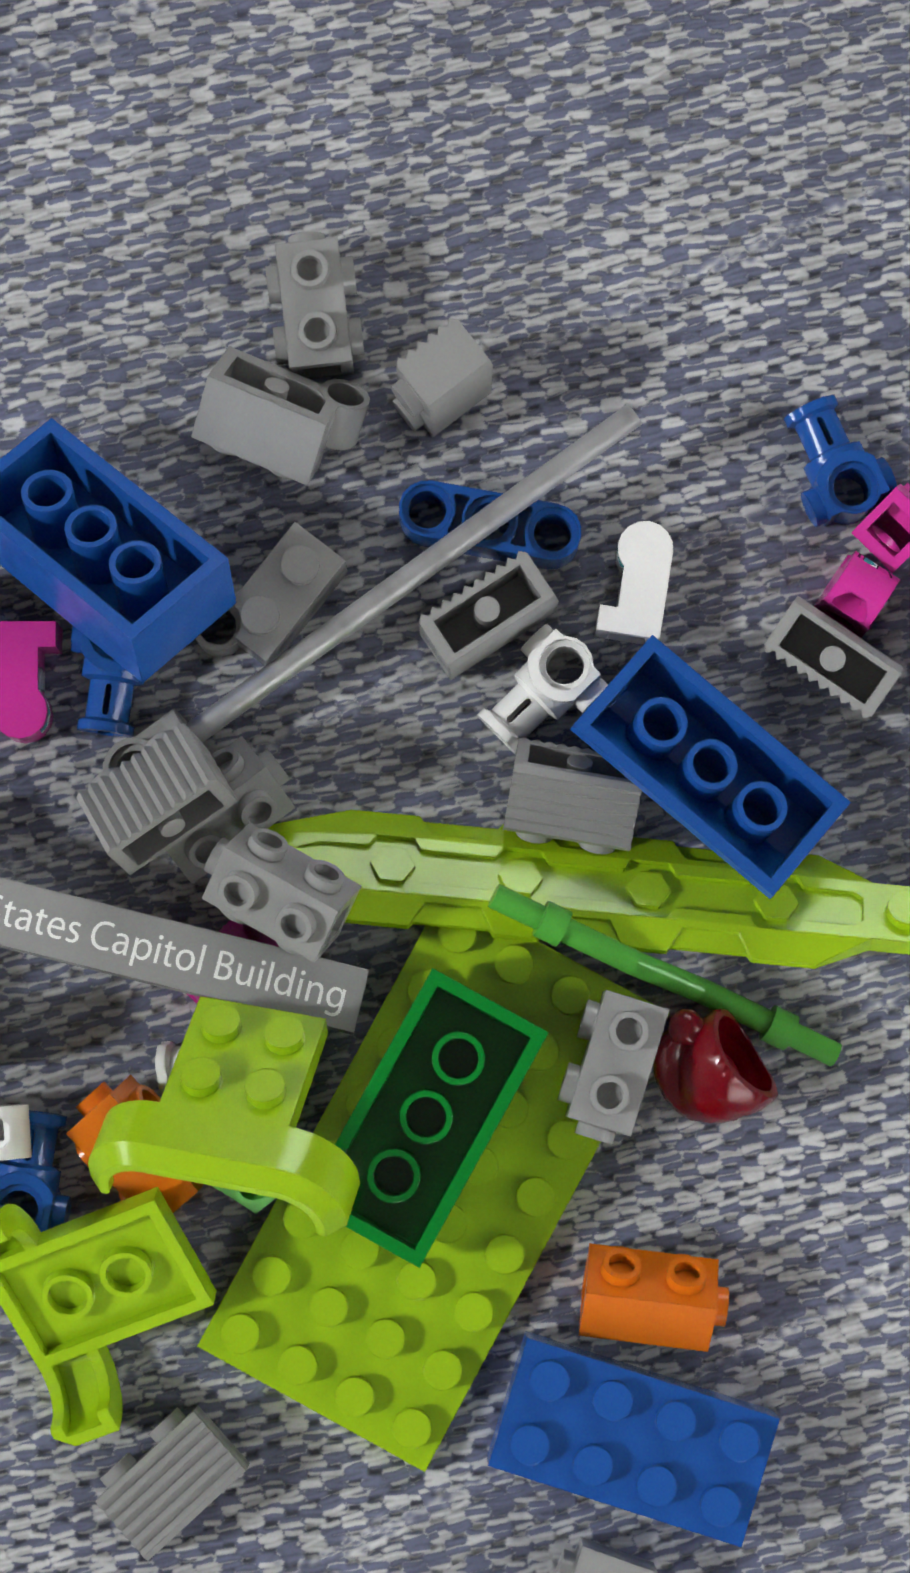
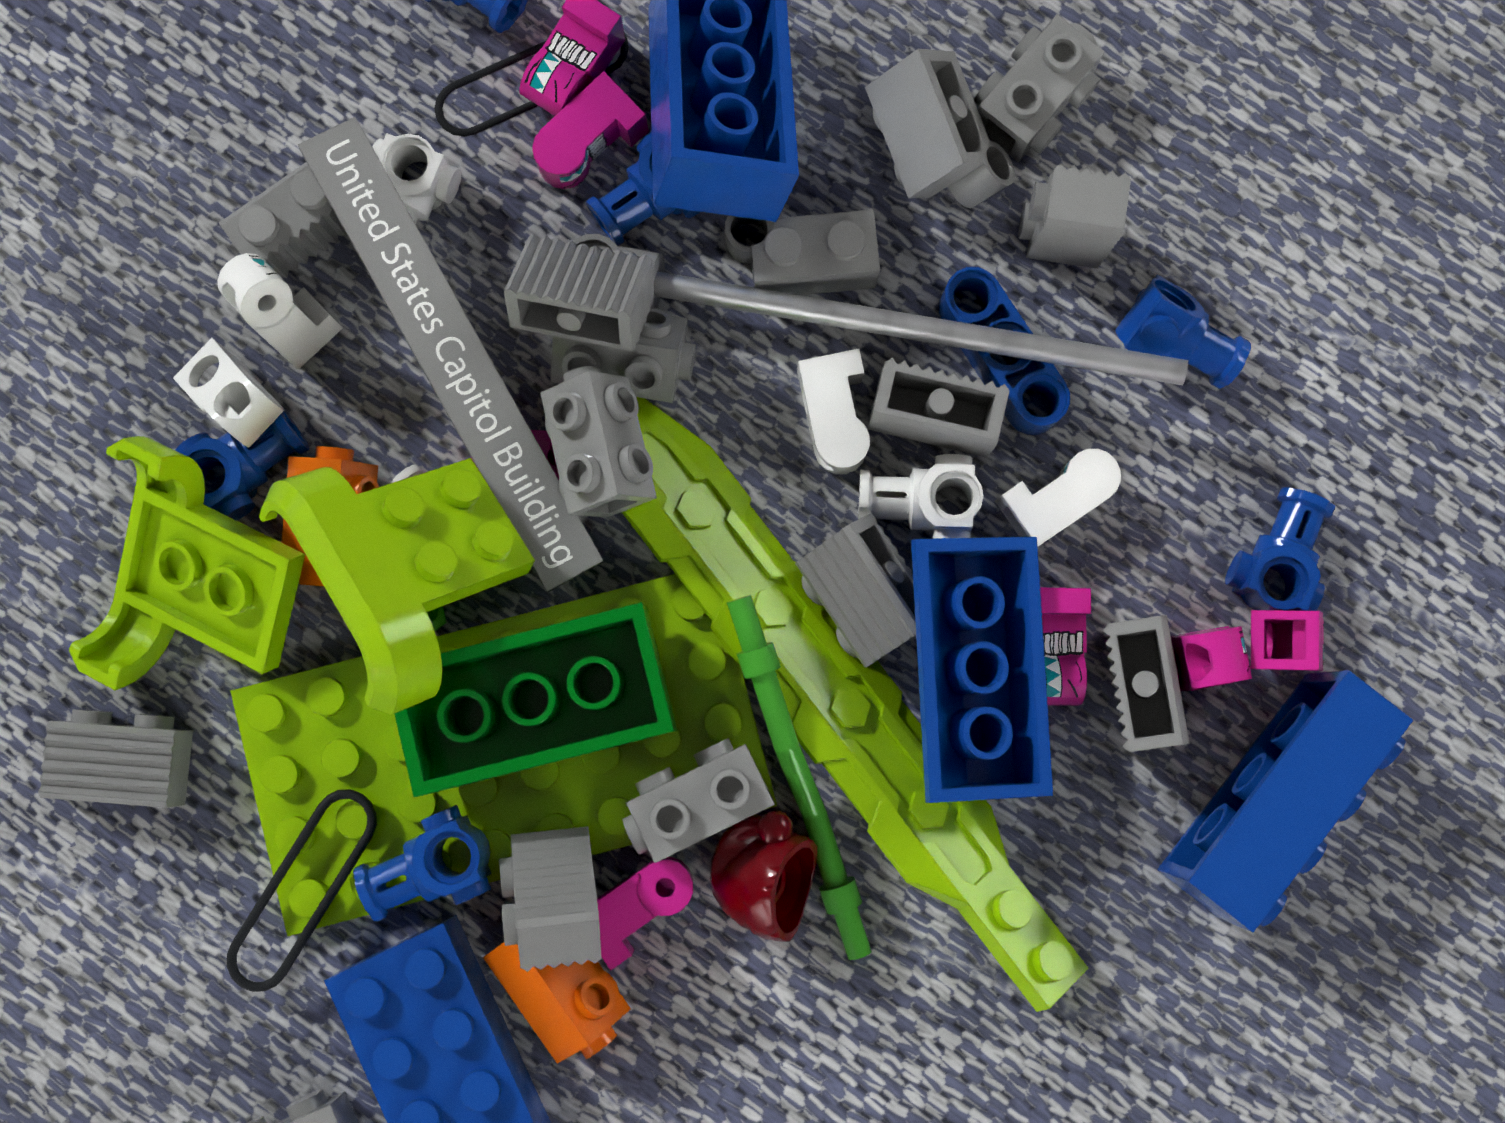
camera: 50 degrees right, 0 degrees up
(428, 1419) = (324, 904): none -> black piece
(431, 706) = (835, 431): none -> white leg
(475, 1315) = (425, 868): none -> blue connector
(586, 1236) = (554, 898): none -> light grey brick
(590, 384) = (1175, 325): none -> blue connector
(642, 1186) = (649, 892): none -> dark pink leg
(749, 687) = (1065, 643): none -> dark pink leg

